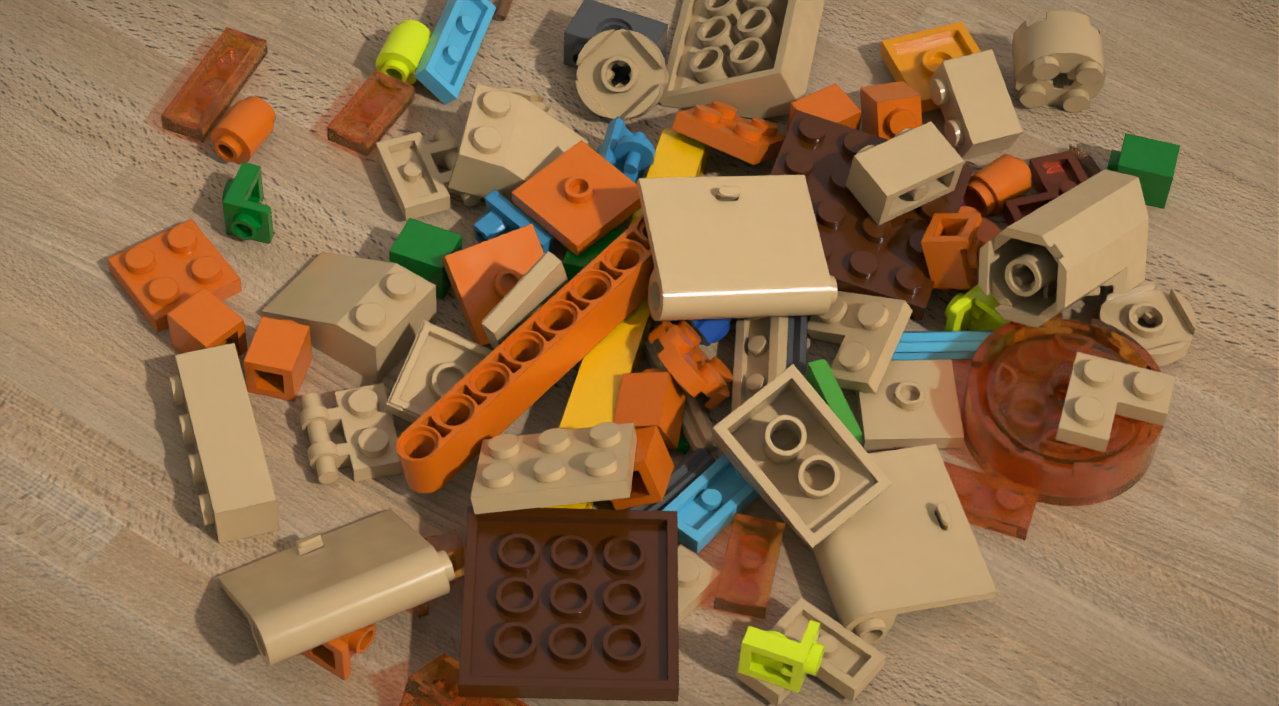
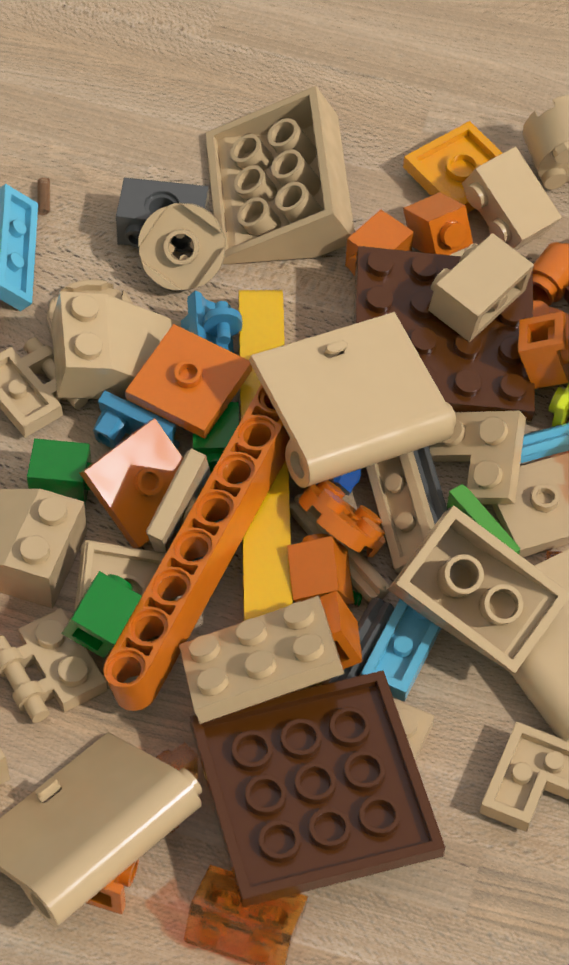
camera: 15 degrees left, 5 degrees up
(413, 387) = (102, 613): none -> green brick
(724, 130) = (299, 280): orange plate -> none
(749, 566) = (458, 702): clear orange plate -> none
(779, 659) = (524, 791): neon yellow bracket -> none

